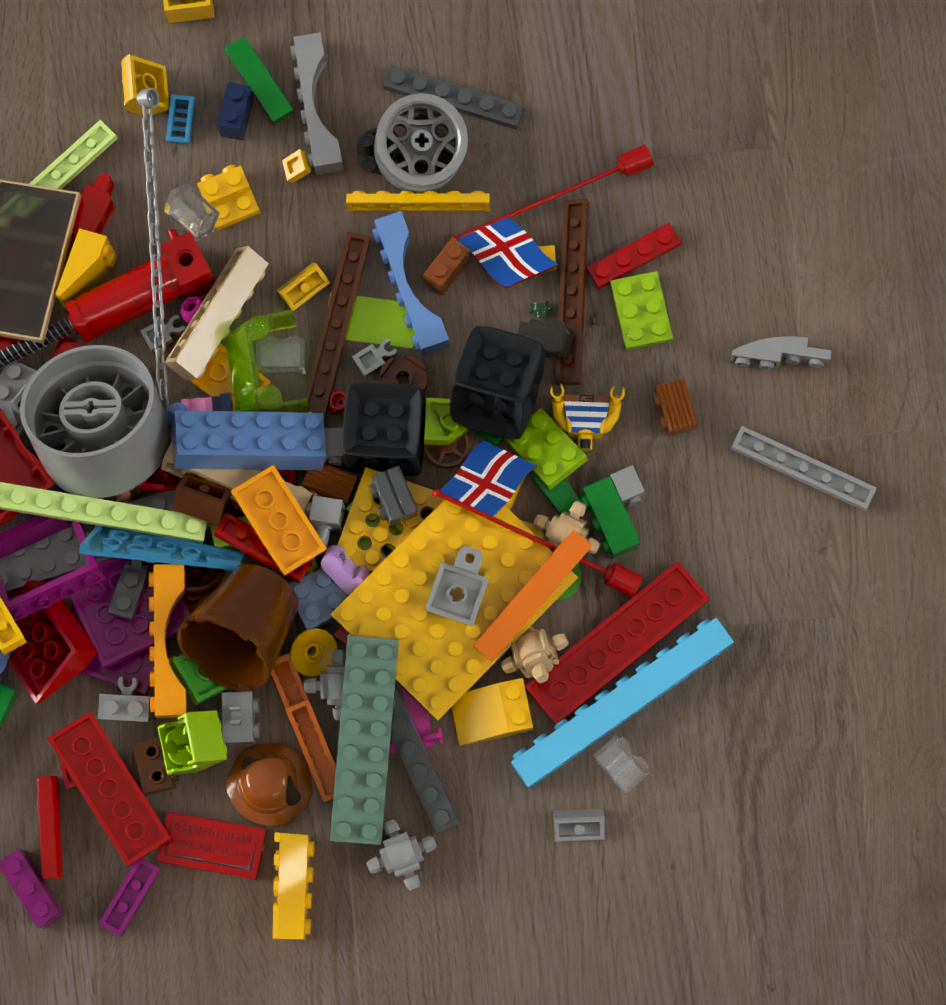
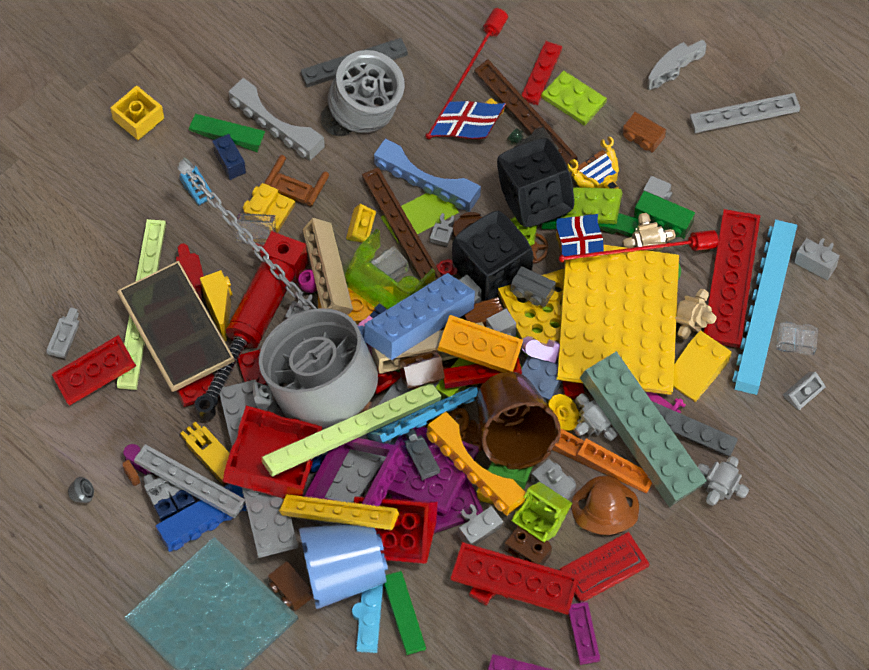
camera: 45 degrees left, 15 degrees down
(49, 828) = (495, 632): red brick -> none
(143, 74) = (158, 182): yellow brick -> none
(268, 192) = (293, 188): none -> dark orange plate
(291, 886) = (675, 549): yellow wedge -> none
(296, 166) = (295, 161): yellow plate -> none
(418, 202) = (388, 130): yellow plate -> none
(447, 266) = (440, 151): dark orange brick -> none
(459, 575) = (616, 294): light grey plate -> none
(532, 595) = (665, 278): orange slope -> none
(724, 694) = (817, 258): none -> light grey brick

